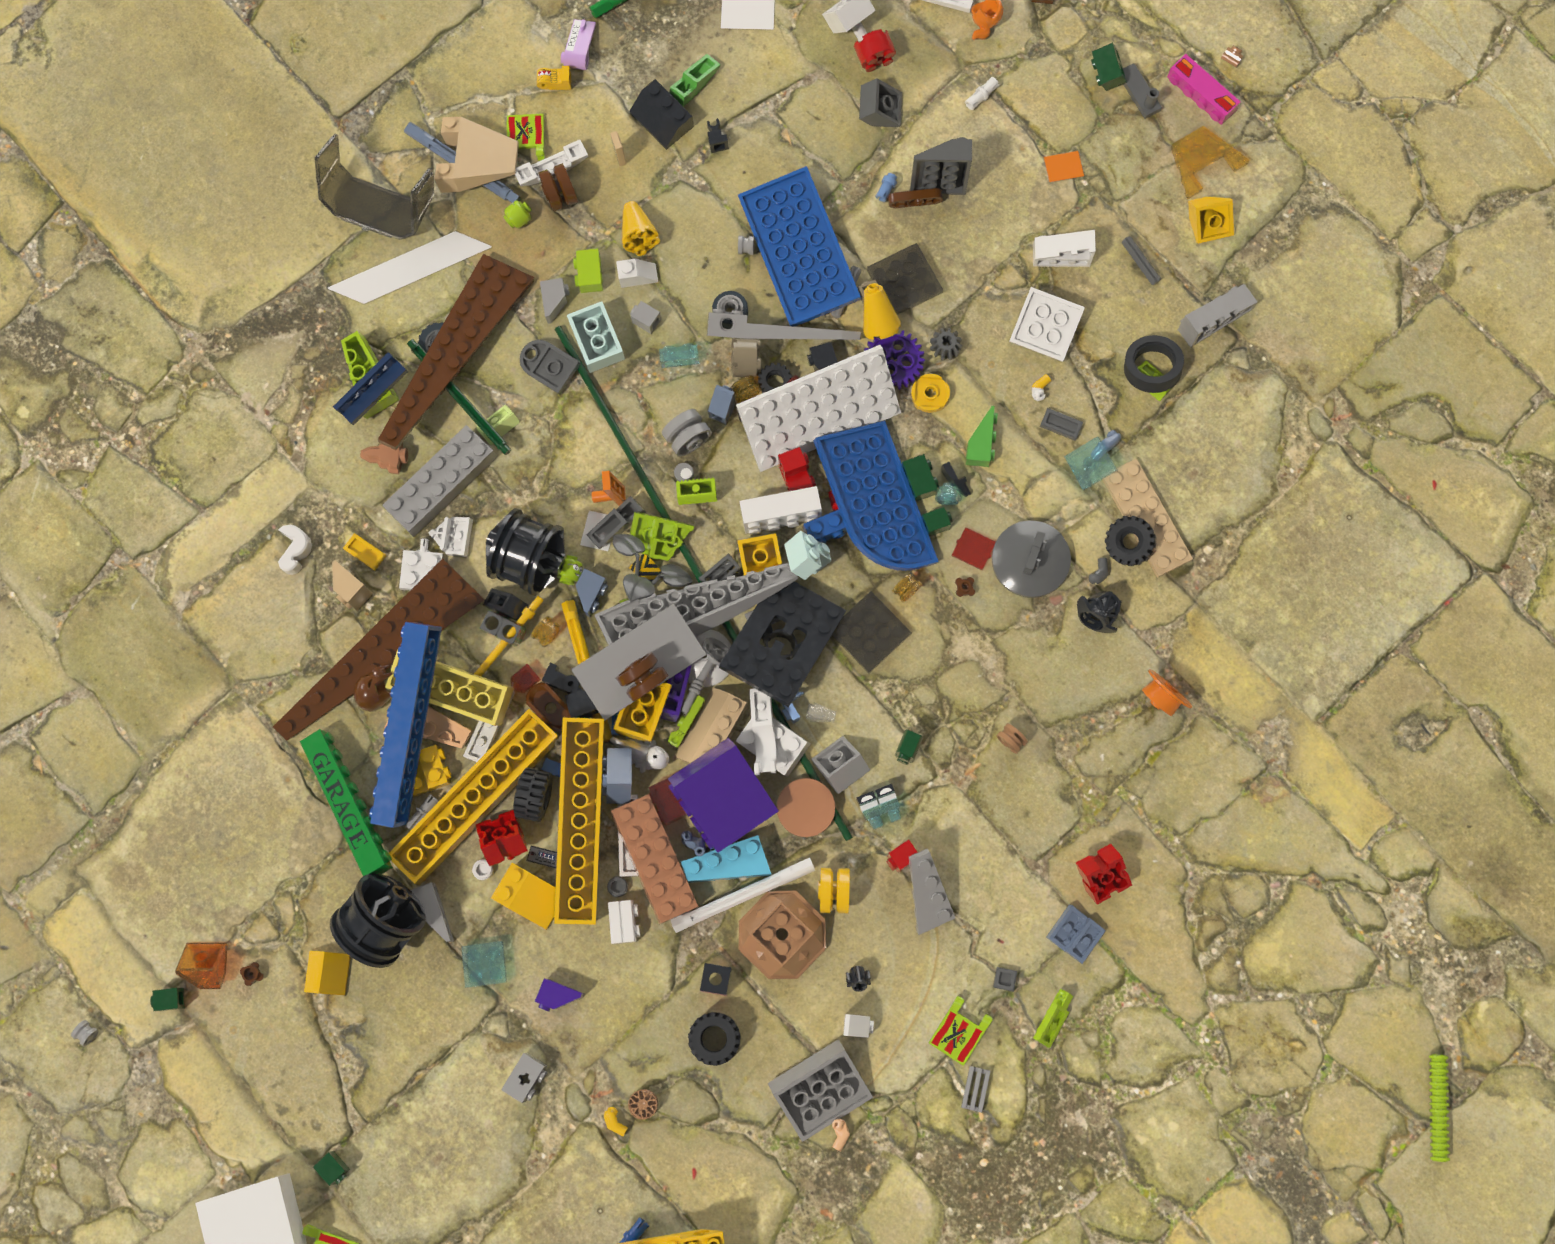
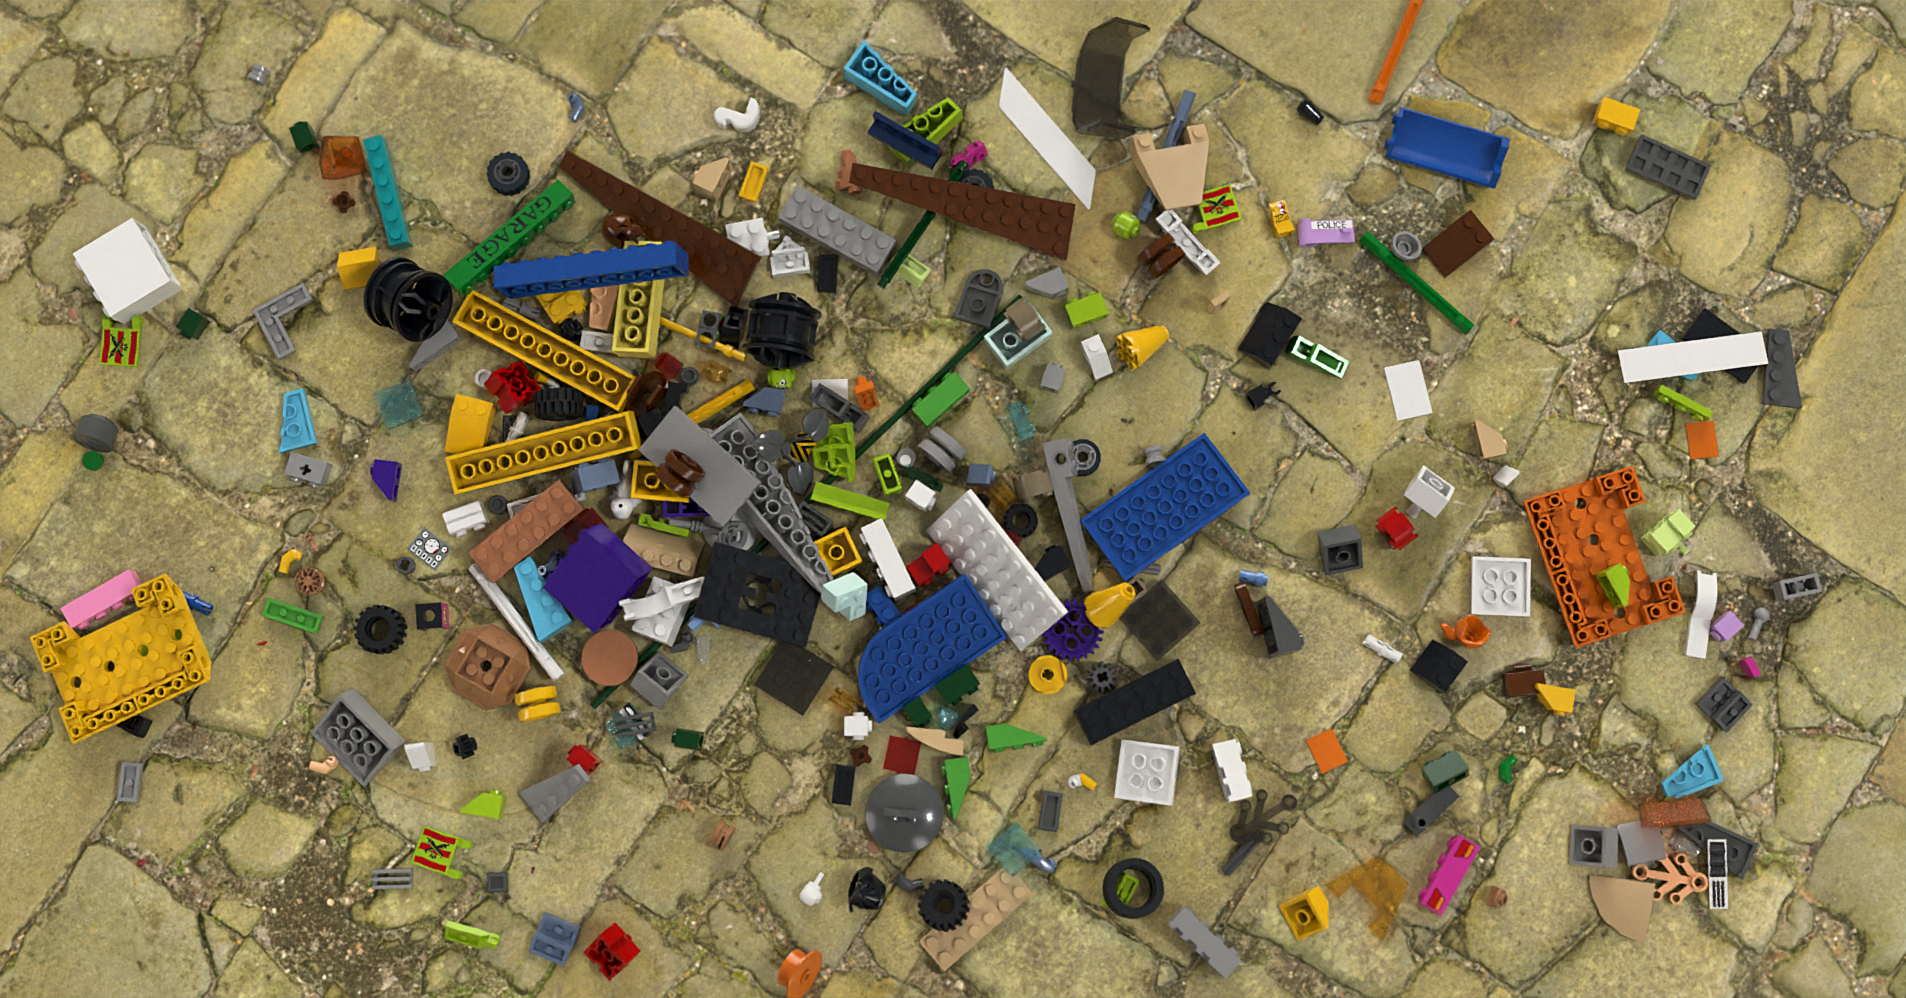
camera: 75 degrees right, 5 degrees up
(230, 707) = (577, 105): none -> sand blue arm
(257, 923) = (388, 193): none -> teal brick
(266, 788) = (508, 162): none -> black wheel
(302, 403) = (879, 80): none -> medium azure wedge
(345, 1080) = (271, 313): none -> light grey plate
(402, 334) = (976, 153): none -> dark pink hinge
(458, 766) = (570, 329): none -> black gear
(460, 28) = (1309, 111): none -> black cone
(473, 1079) = (297, 422): none -> medium azure wing
(479, 503) = (827, 273): none -> black tile
(503, 805) = (546, 379): none -> arm
(541, 661) = (689, 376): none -> dark grey plate
(545, 847) = (518, 427): none -> white pin
(582, 318) = (1025, 318): none -> dark tan brick
(636, 425) = (940, 399): none -> bright green brick
(643, 969) = (429, 548): none -> sticker
(650, 1003) = (400, 563): none -> dark grey bush
(674, 1131) = (292, 615): none -> bright green plate
(712, 535) = (850, 501): none -> lime fence
(713, 454) = (929, 481): none -> clear green wing
(727, 463) = (921, 497): none -> white brick
(809, 731) = (684, 643): none -> dark grey arm
(880, 801) = (618, 727): none -> dark grey tile
(924, 968) = (487, 805): none -> lime slope
(935, 582) = (857, 726): none -> white brick
(968, 509) = (937, 740): none -> tan slope
(977, 320) = (1134, 702): none -> black brick
(989, 609) = (843, 784): none -> black plate
(1011, 49) = (1438, 666): none -> black slope
(1012, 500) = (958, 777): none -> bright green slope
(1088, 667) = (811, 892): none -> white piece
(1115, 237) = (1261, 820): none -> clear smoke plant
(1118, 19) = (1504, 769): none -> green arm

